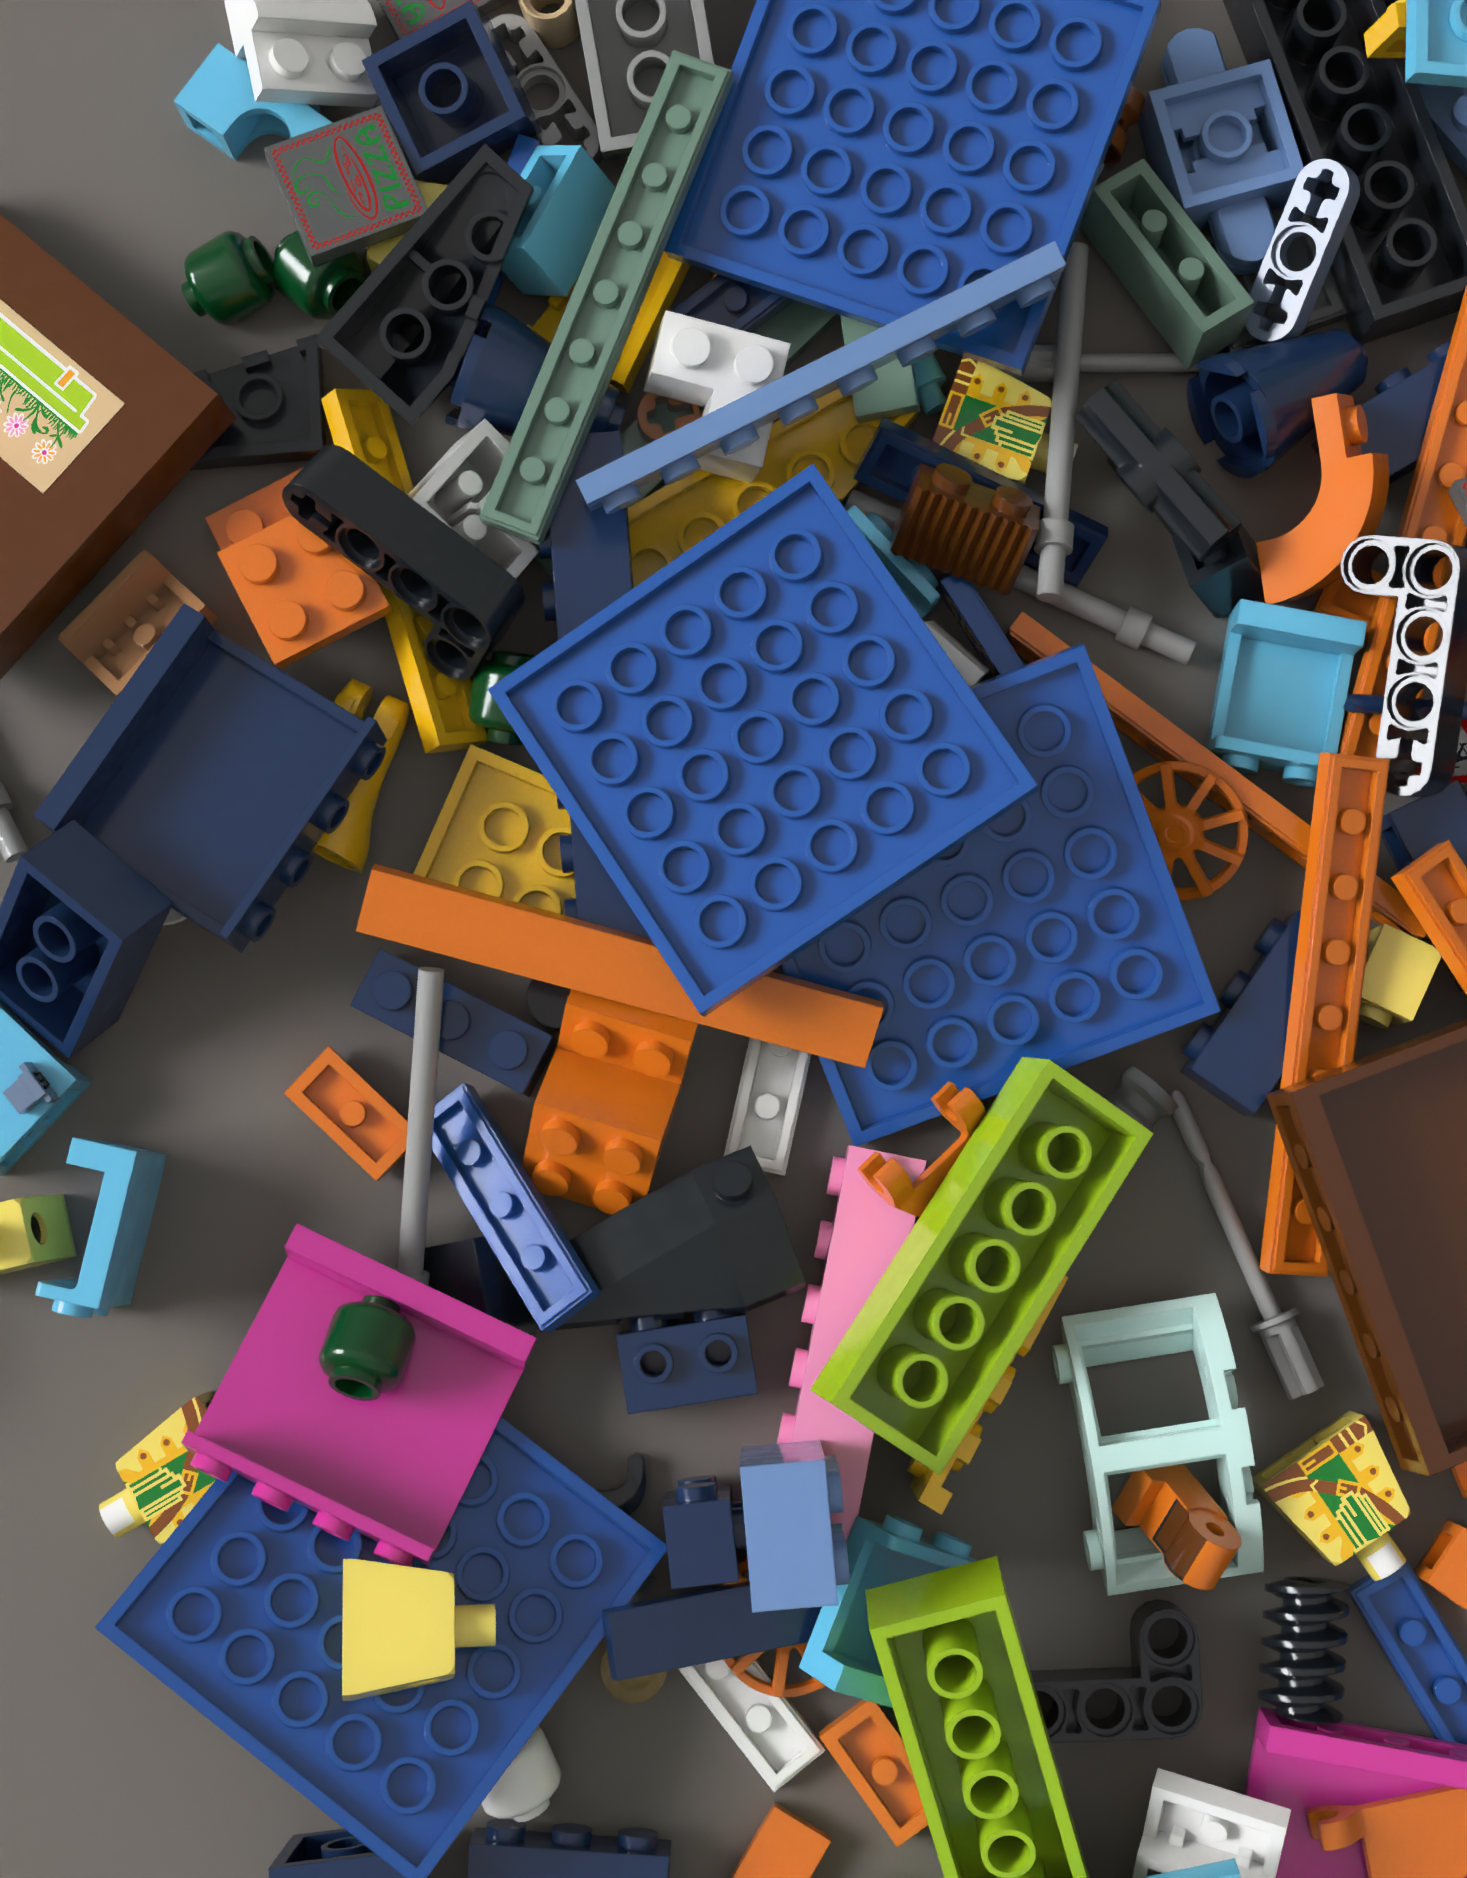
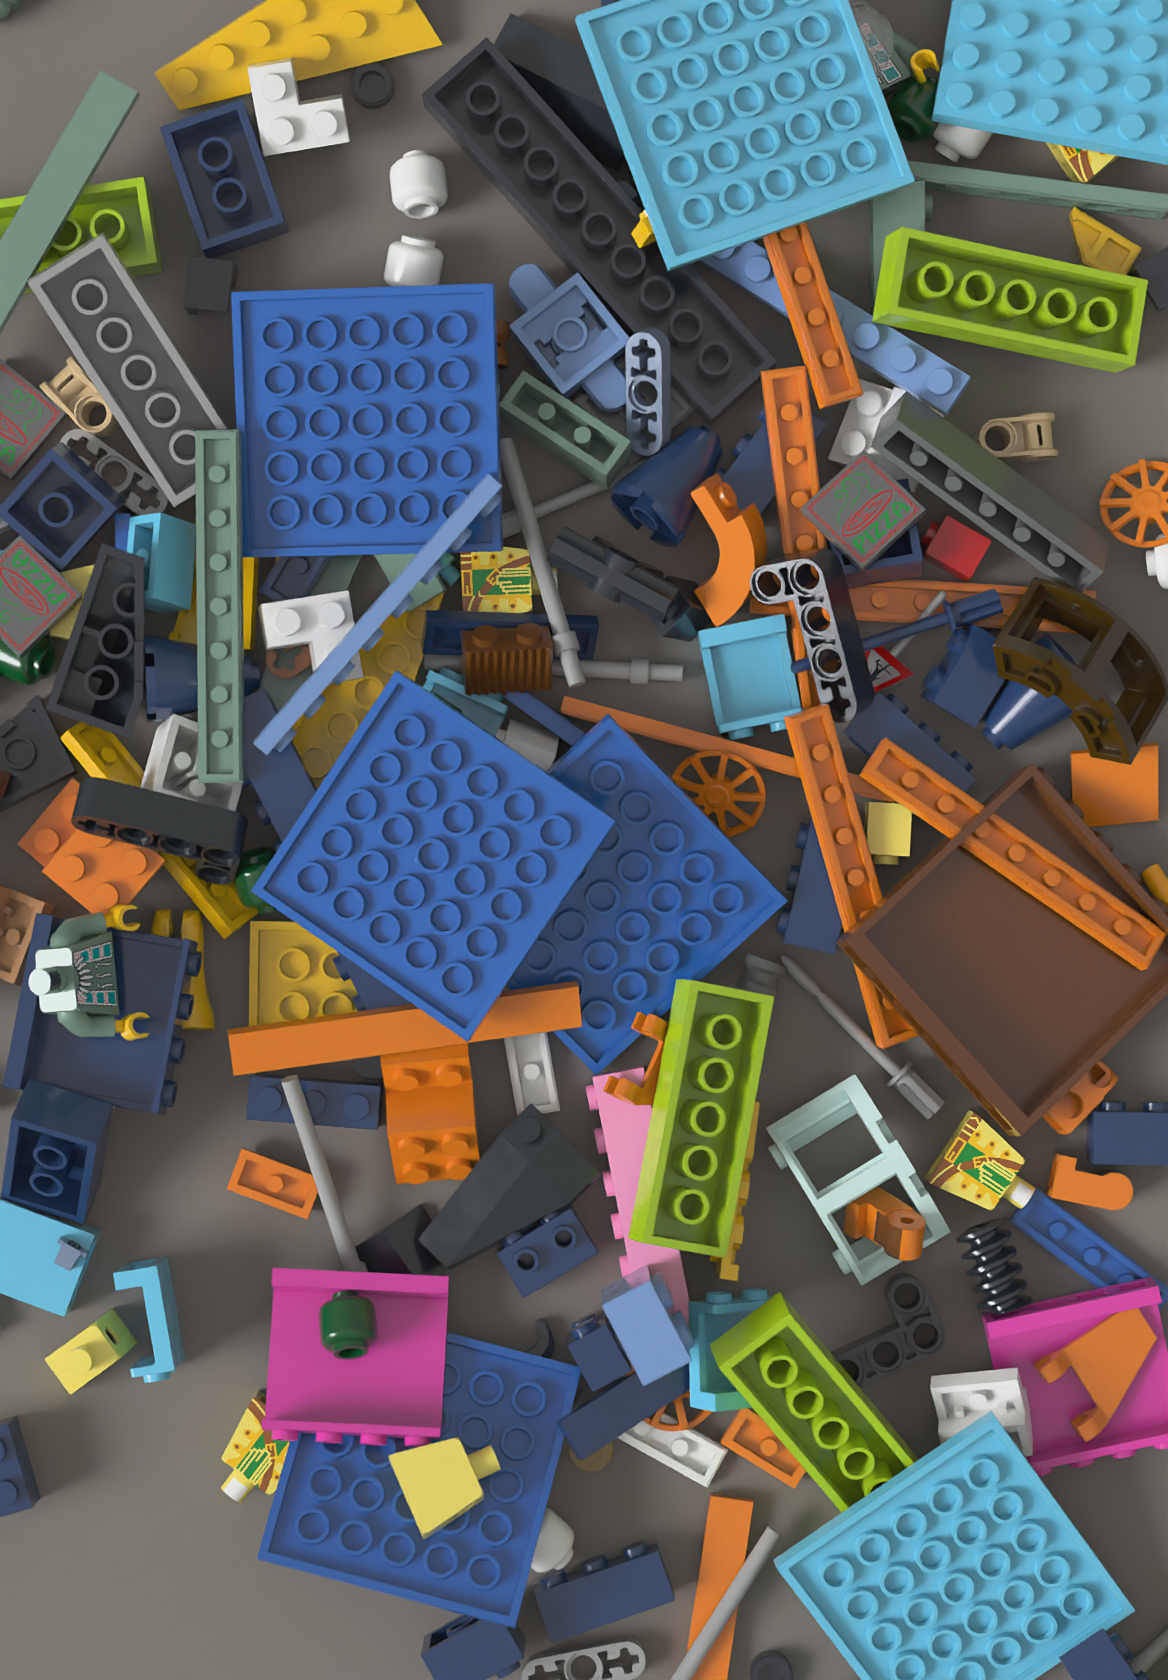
camera: 30 degrees left, 5 degrees up
(202, 710) = (79, 976): none -> sand green torso
(510, 1210) = (398, 1203): tile -> none

